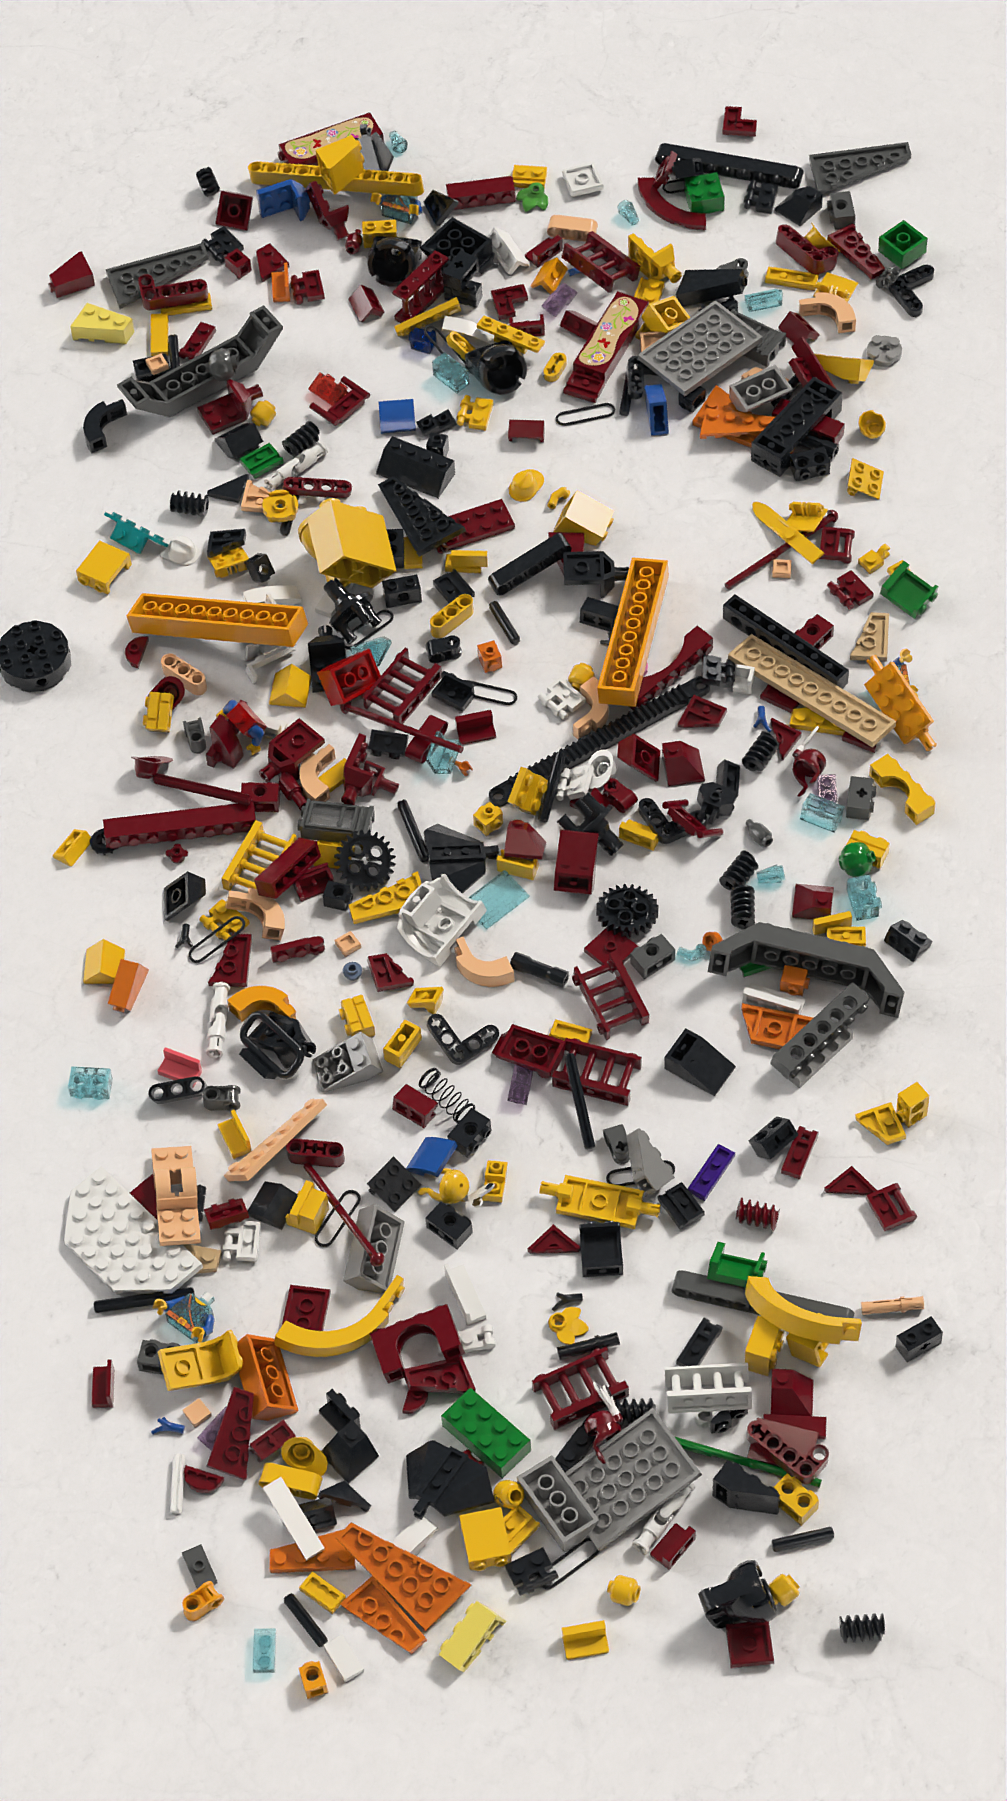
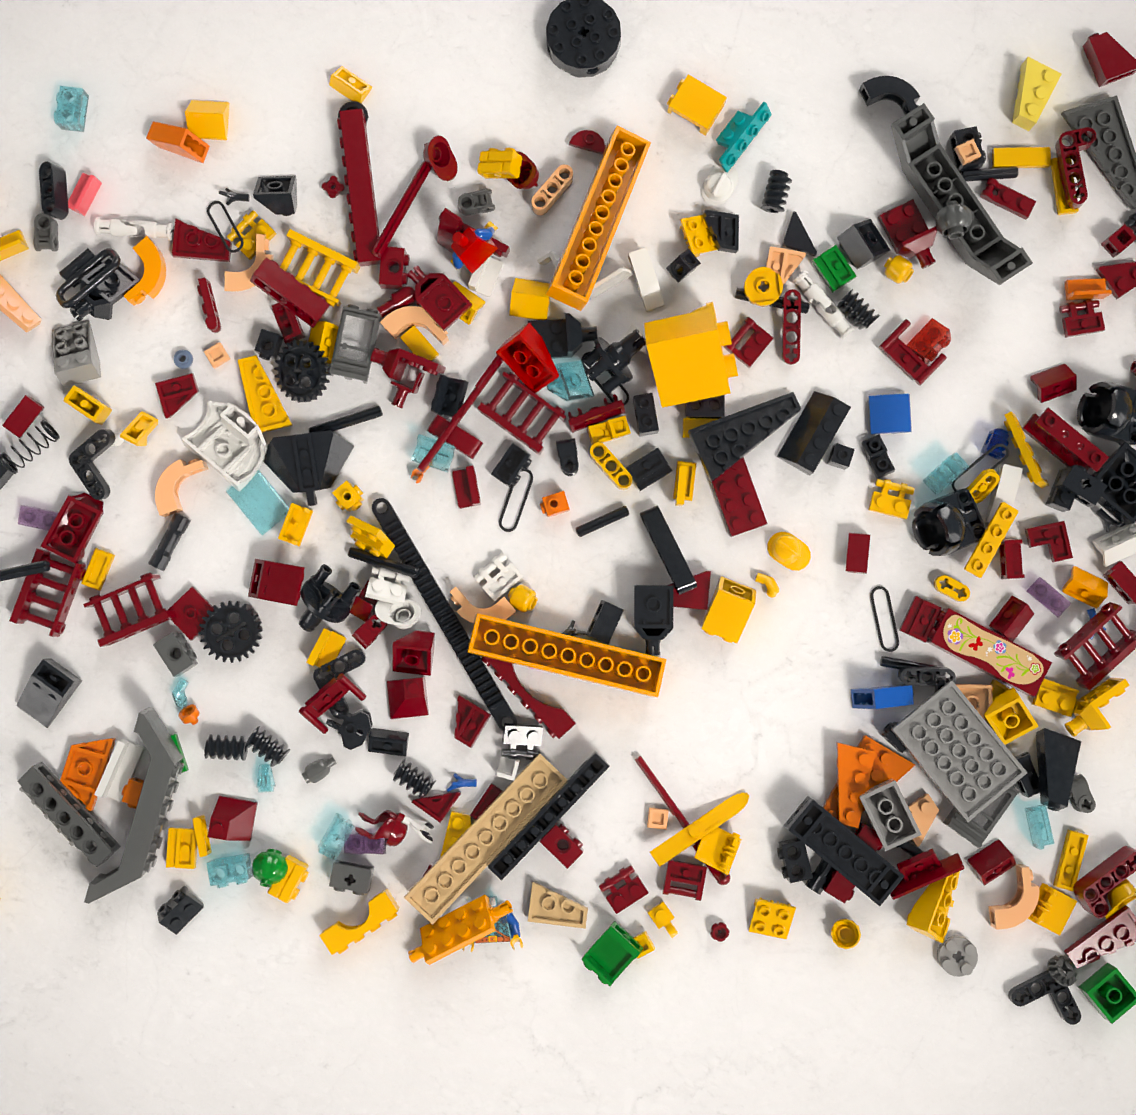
camera: 90 degrees right, 30 degrees up
(357, 1016) = (125, 362): yellow brick -> none
(401, 629) = (596, 414): none -> dark red plate
(417, 622) = (608, 430): none -> yellow slope
(523, 841) = (312, 532): dark red slope -> none
(881, 517) = (719, 936): none -> dark red plate

